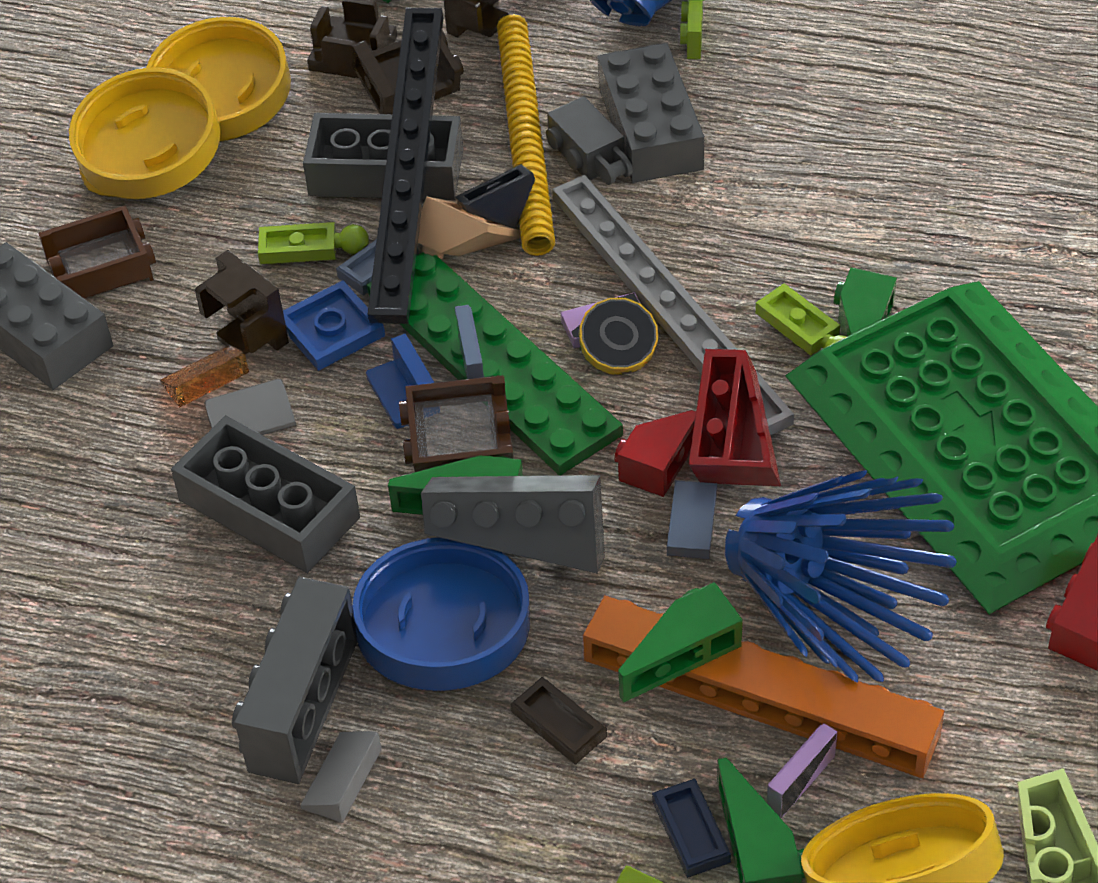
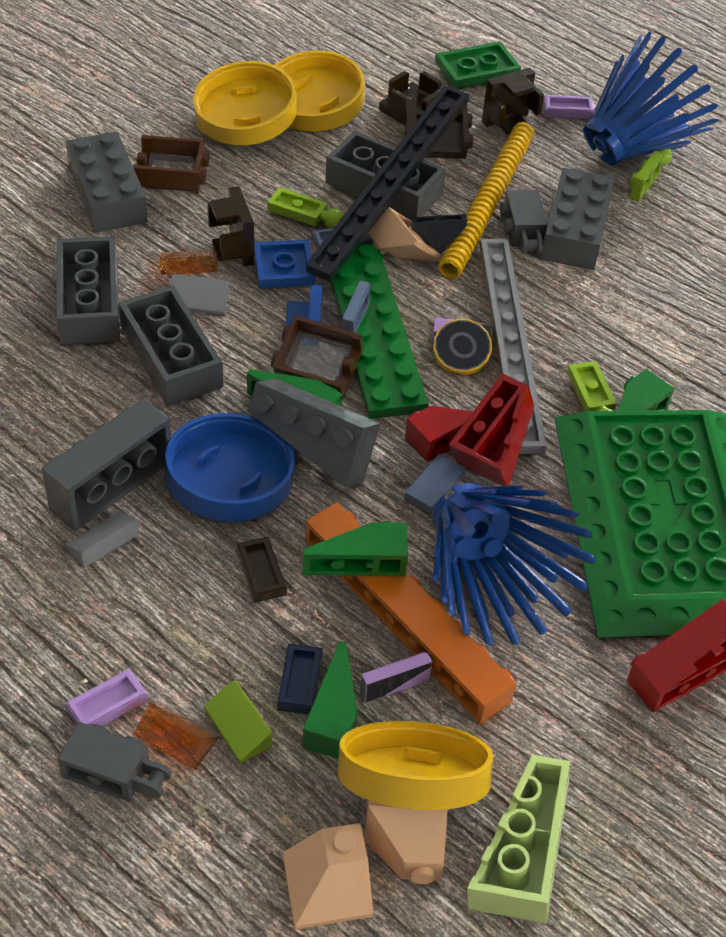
camera: 20 degrees right, 0 degrees up
(111, 470) = (87, 291): none -> dark grey brick

